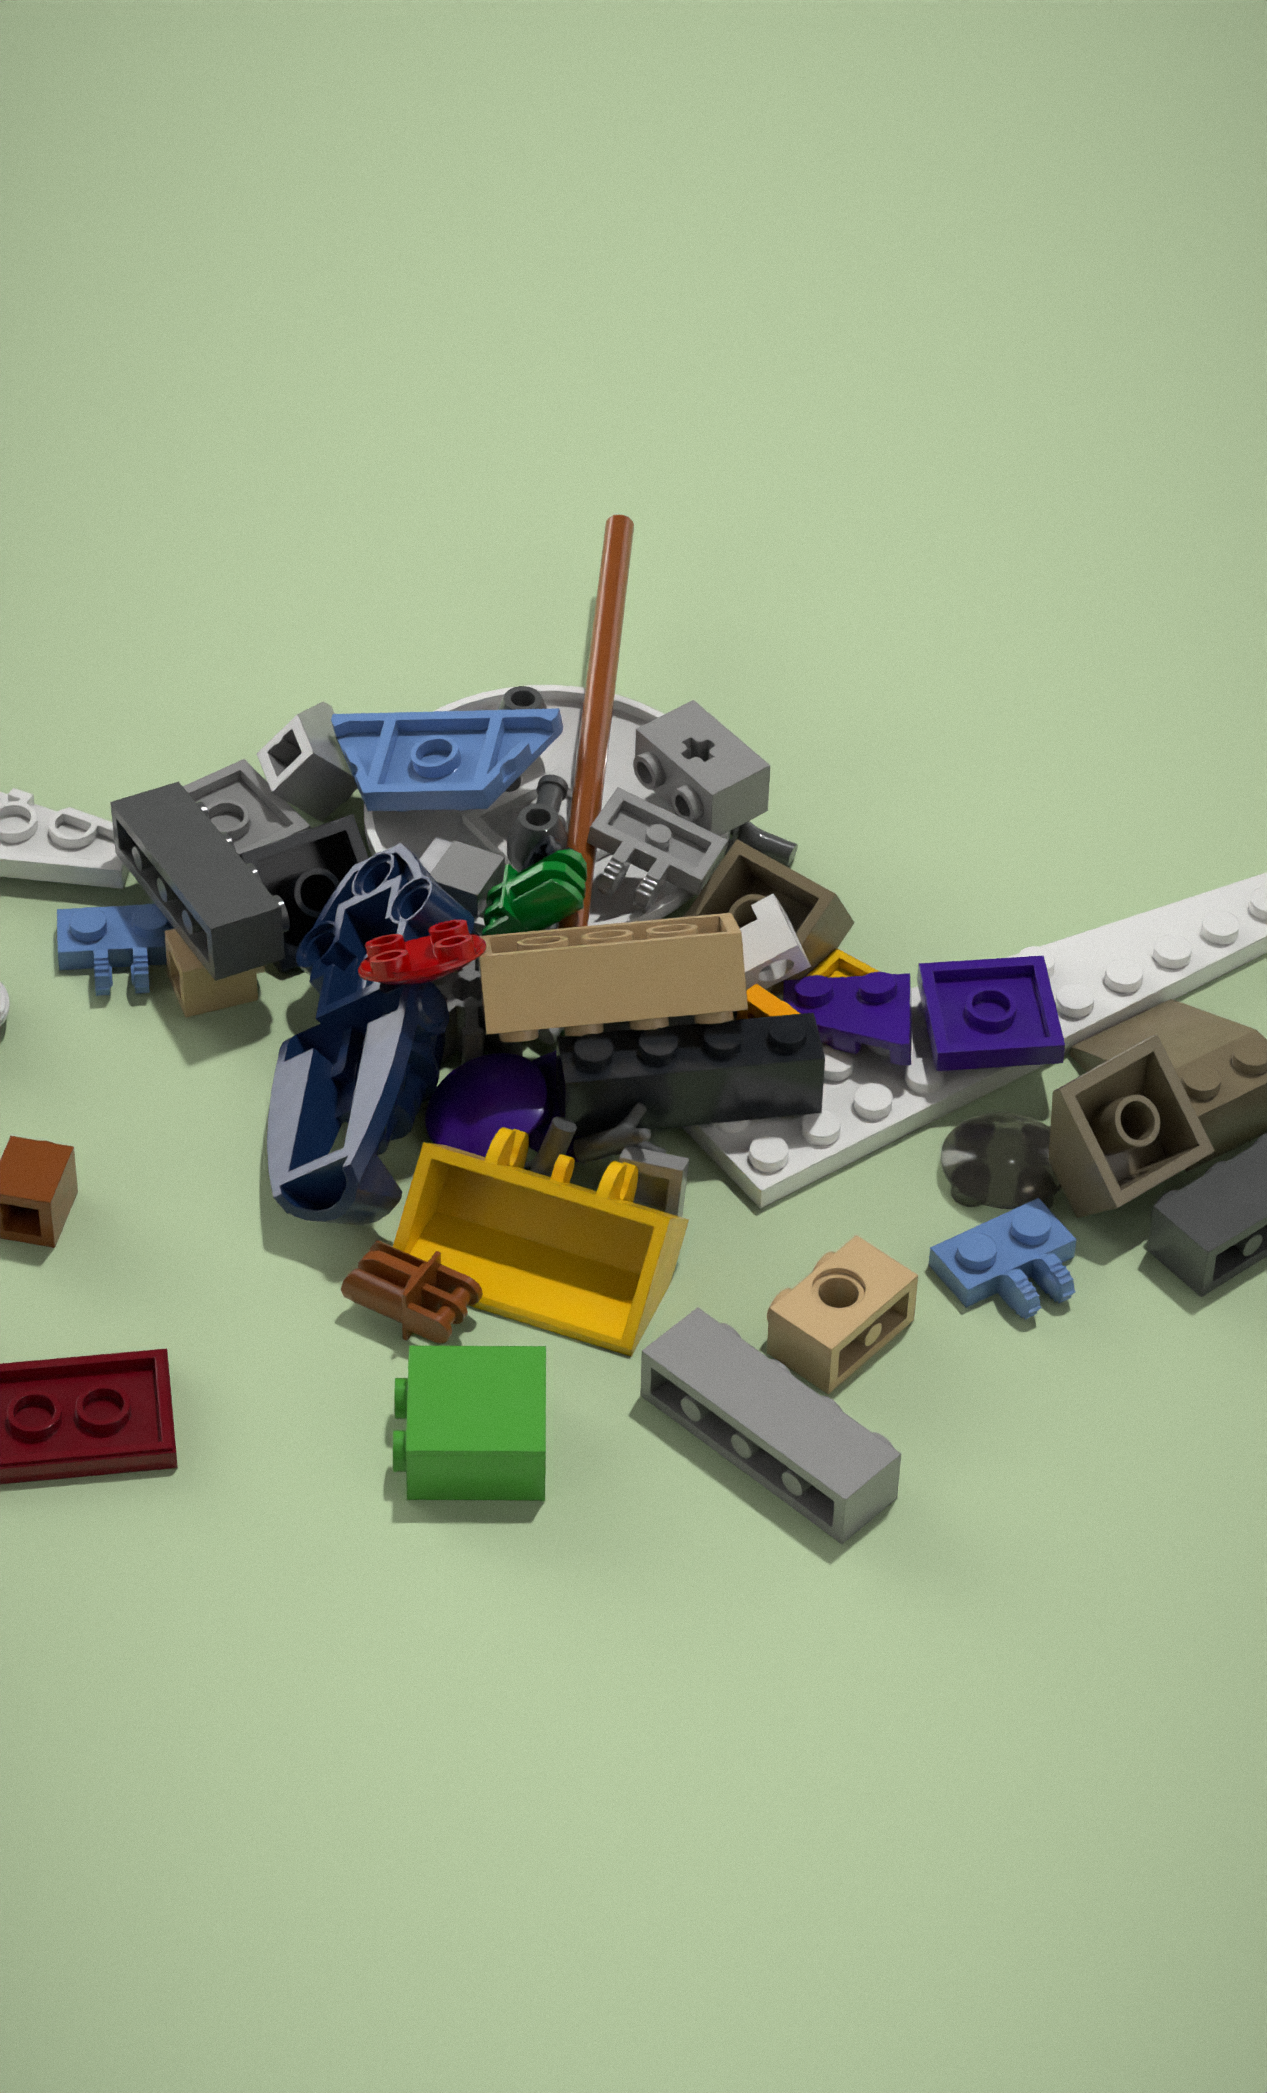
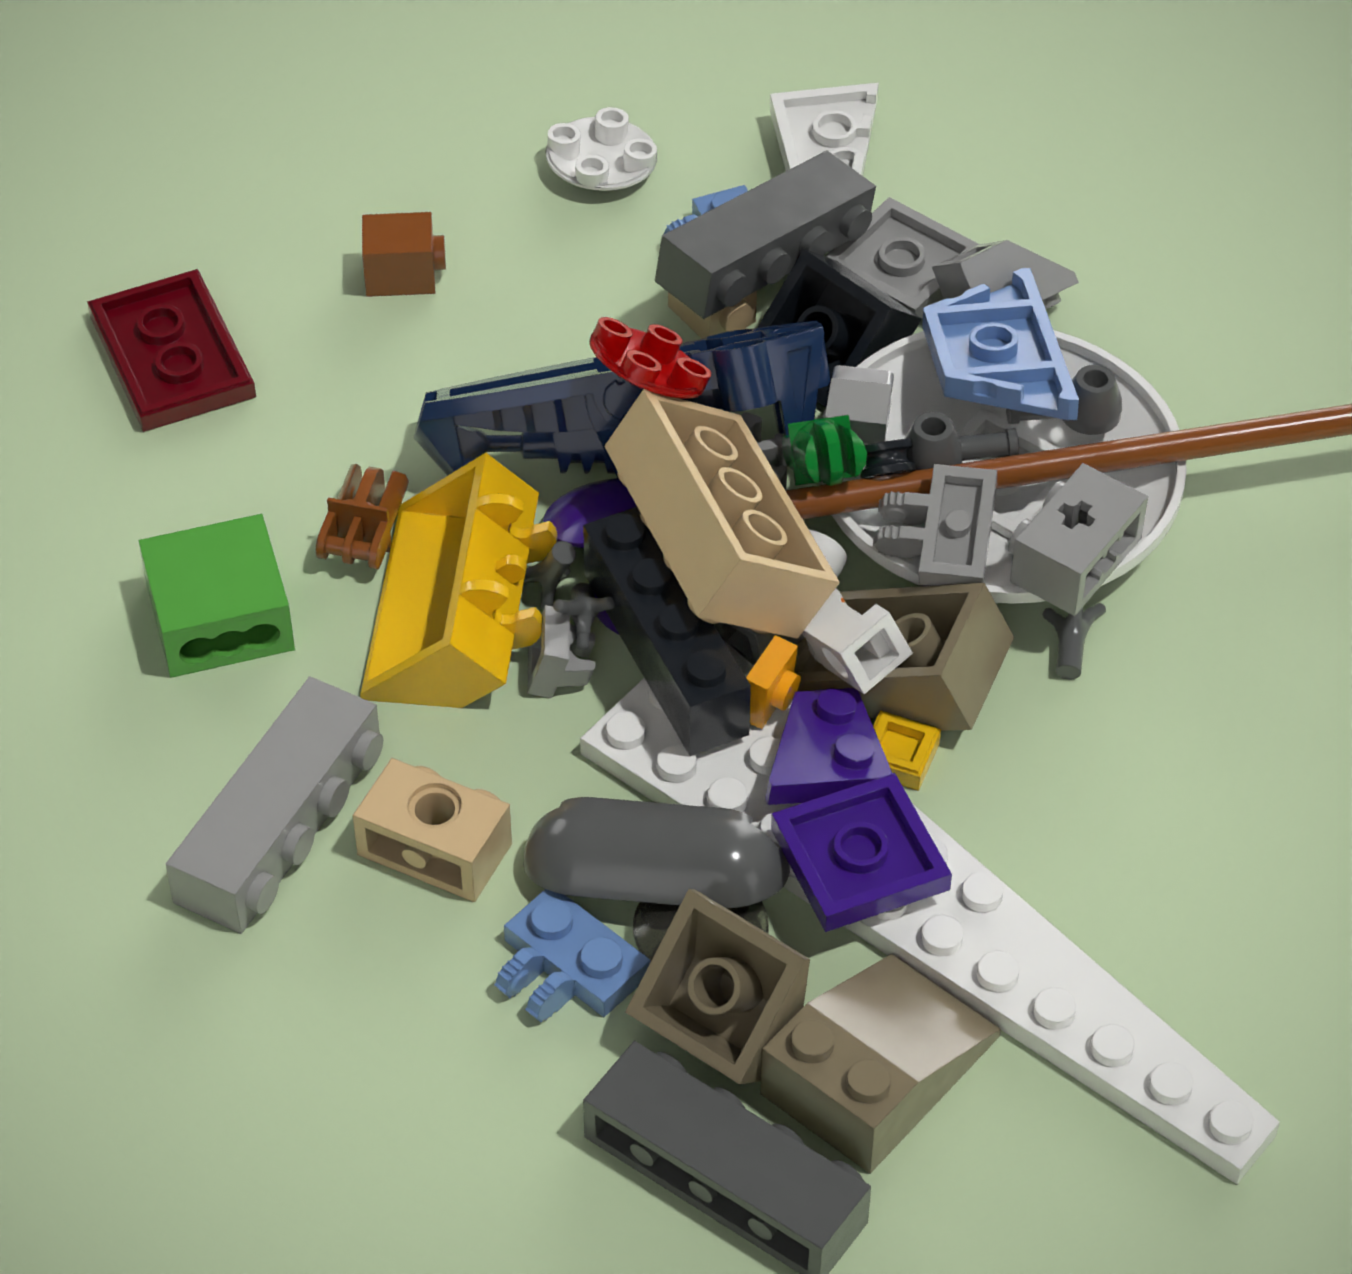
camera: 75 degrees right, 5 degrees up
(936, 1162) = (653, 853): none -> dark grey brick

